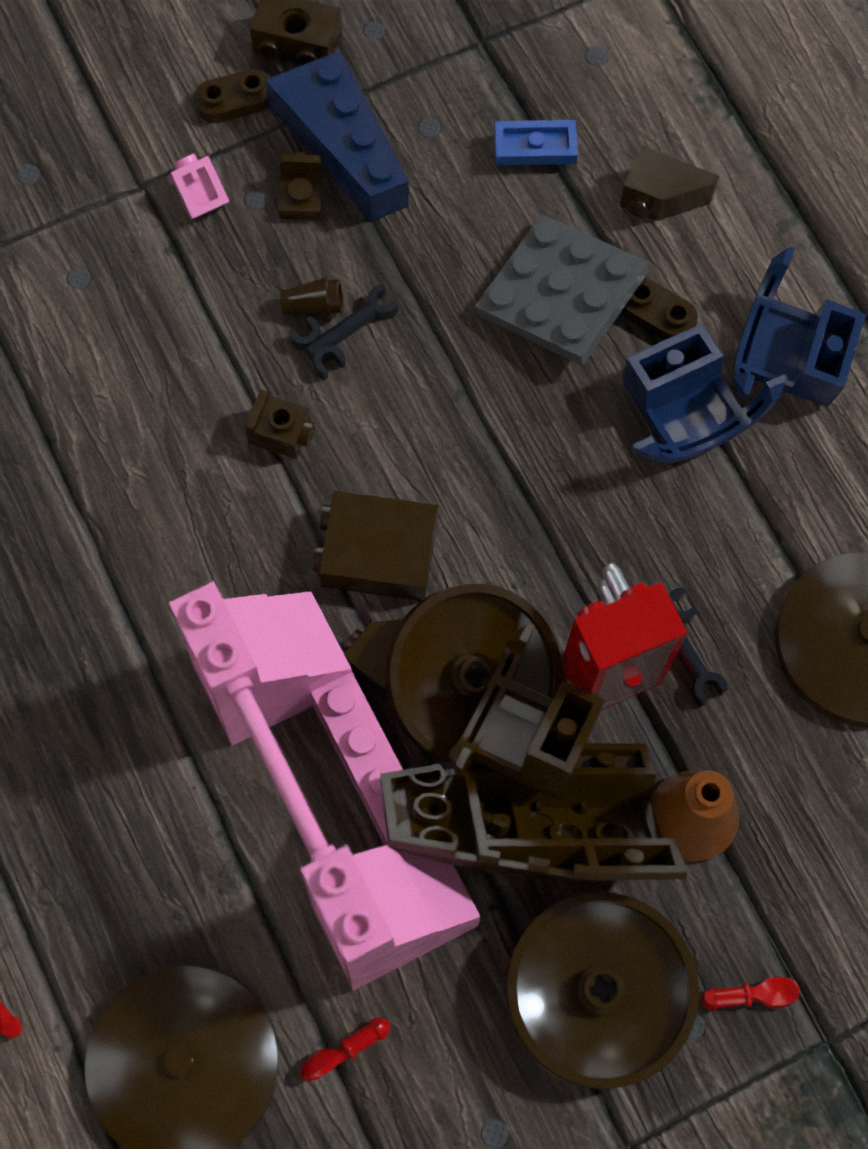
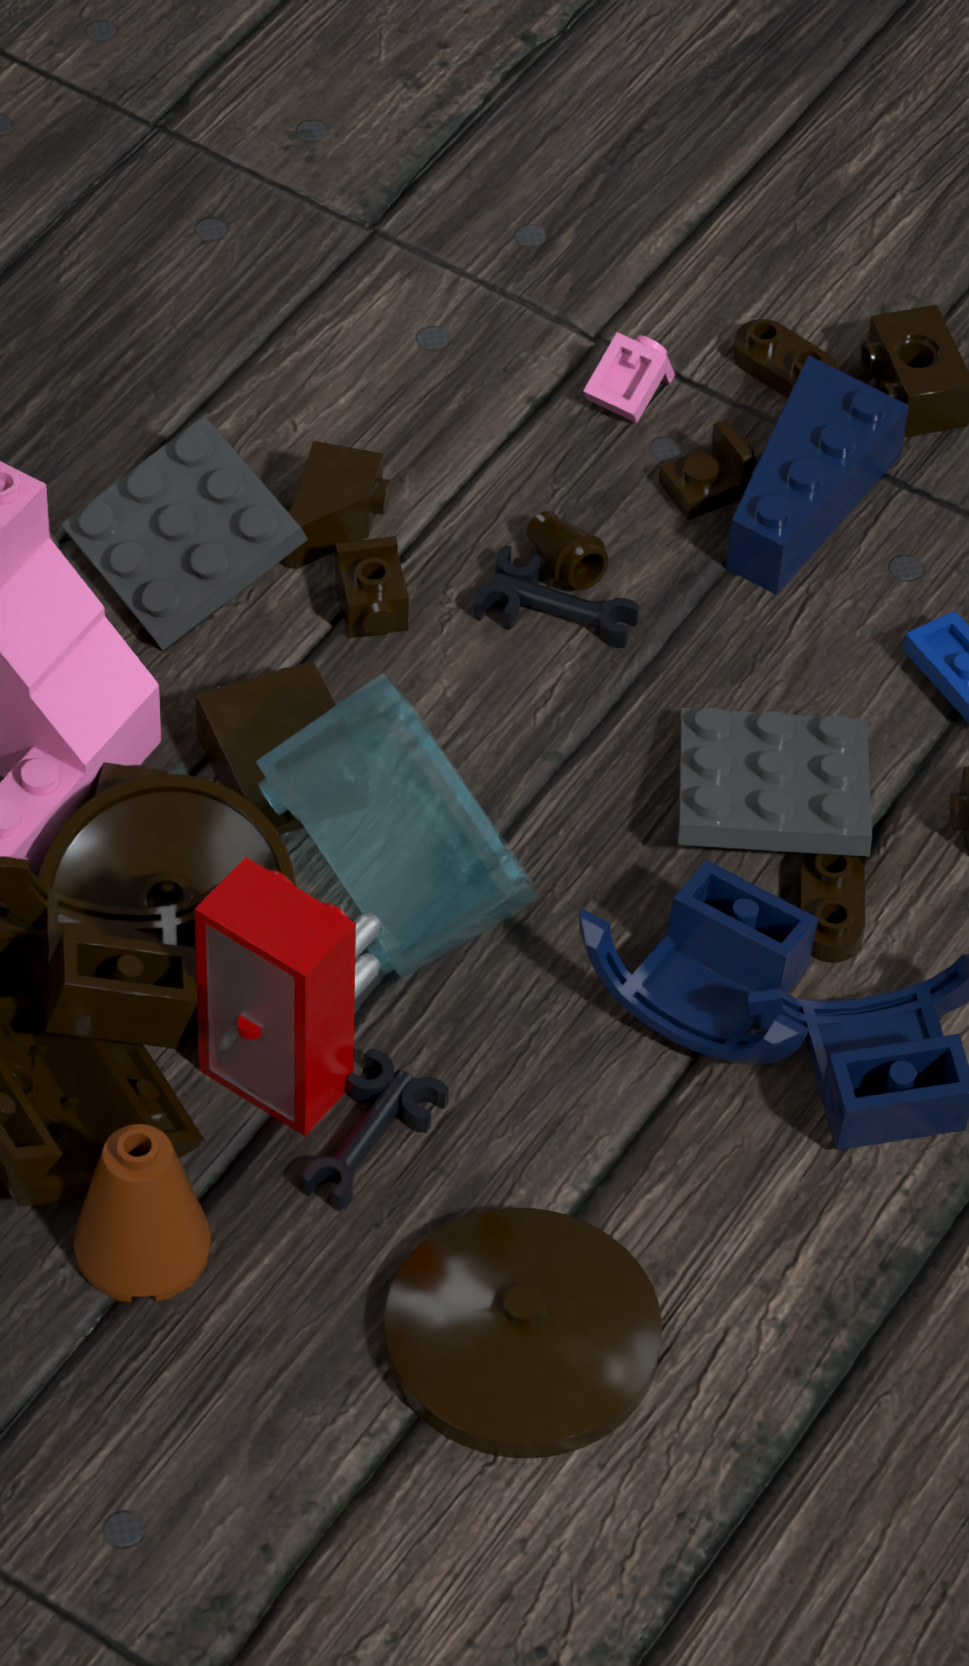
camera: 60 degrees right, 20 degrees down
(169, 509) = (184, 532): none -> dark grey plate
(193, 407) = (337, 499): none -> dark brown slope
(505, 512) = (397, 826): none -> clear light blue windscreen

